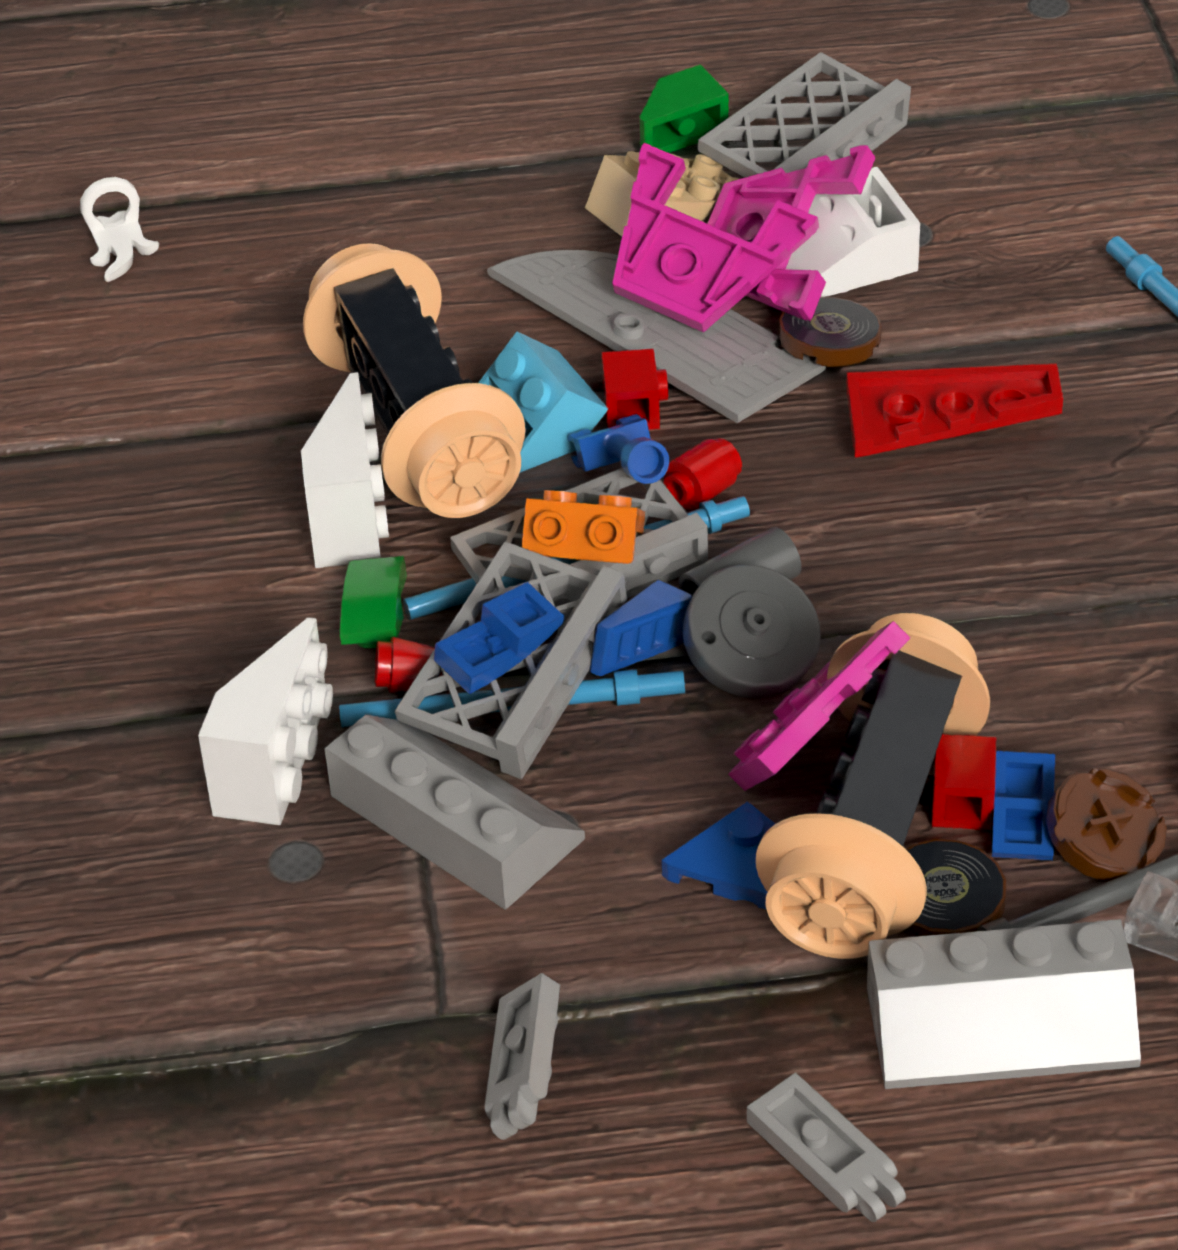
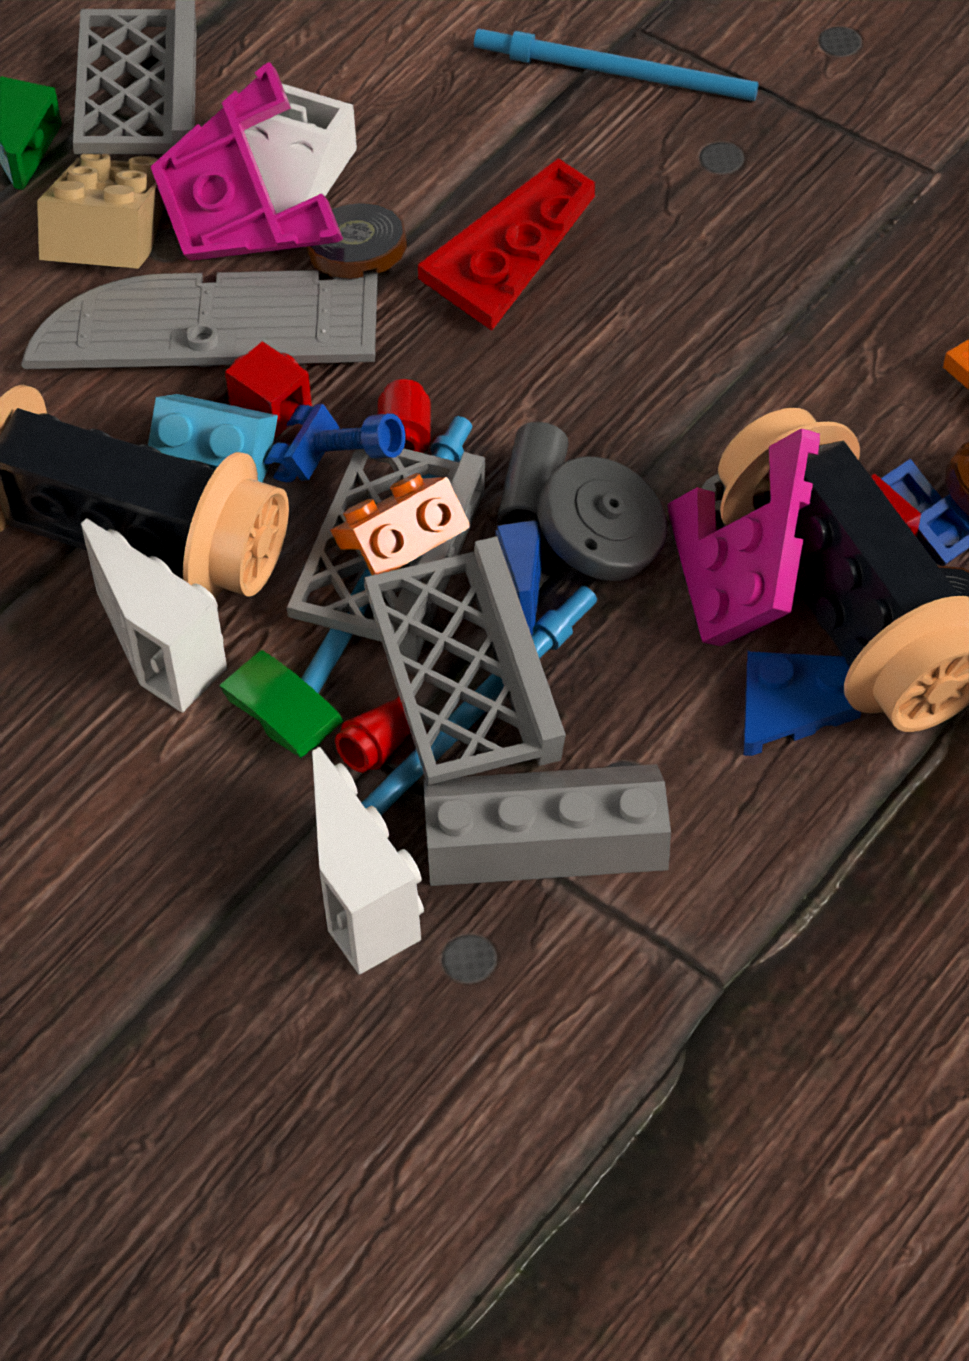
camera: 45 degrees left, 10 degrees up
(507, 634) = (454, 658): blue slope -> none
(521, 1055) = (836, 967): light grey hinge -> none
(687, 264) = (203, 253): dark pink wing -> none

